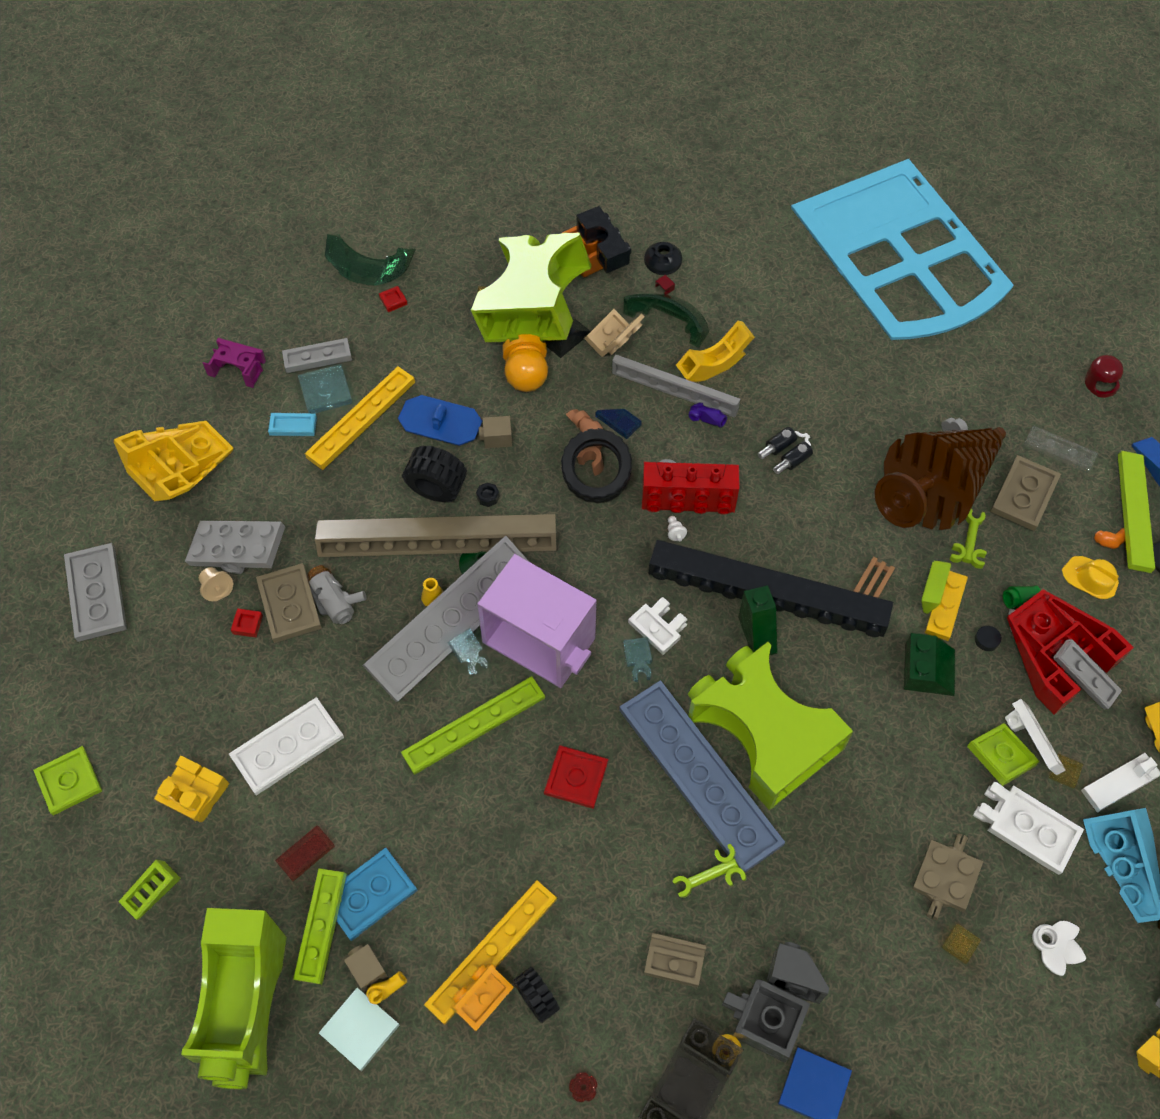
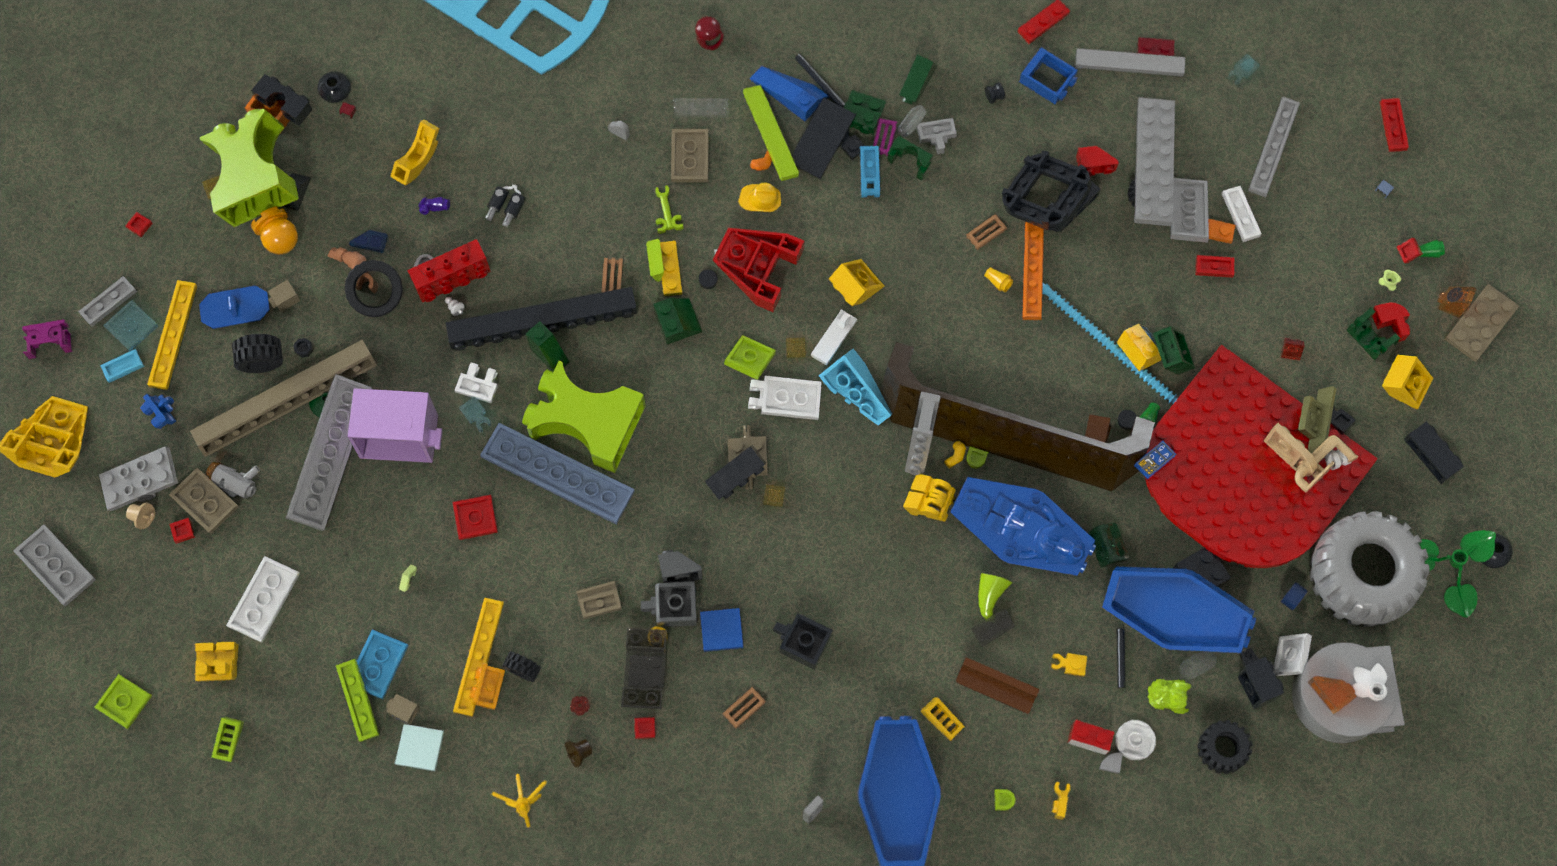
camera: 30 degrees left, 10 degrees up
(238, 982) = (331, 766): lime brick -> none
(304, 484) = (161, 407): none -> blue hips
(305, 853) = (319, 661): clear red tile -> none
(366, 269) = (101, 209): clear green windscreen -> none
(382, 990) = (421, 716): yellow arm -> none
(430, 591) = (303, 441): yellow cone -> none
(458, 805) = (409, 572): none -> yellowish green tile
(466, 648) = (352, 468): clear light blue plate -> none
(472, 725) = (385, 518): lime tile -> none
(612, 333) = (328, 172): tan bracket -> none
(672, 306) = (363, 125): clear green windscreen -> none
(675, 385) = (397, 193): light grey tile -> none
(728, 866) = (604, 524): lime bar -> none
(926, 889) = (736, 473): none -> black brick
(936, 476) = (621, 176): reddish brown plant -> none
(1018, 595) = (715, 237): green cone -> none
(1023, 718) = (755, 325): white hinge -> none
(1062, 947) = (837, 465): white plate -> none
(1087, 674) = (782, 273): light grey tile -> none

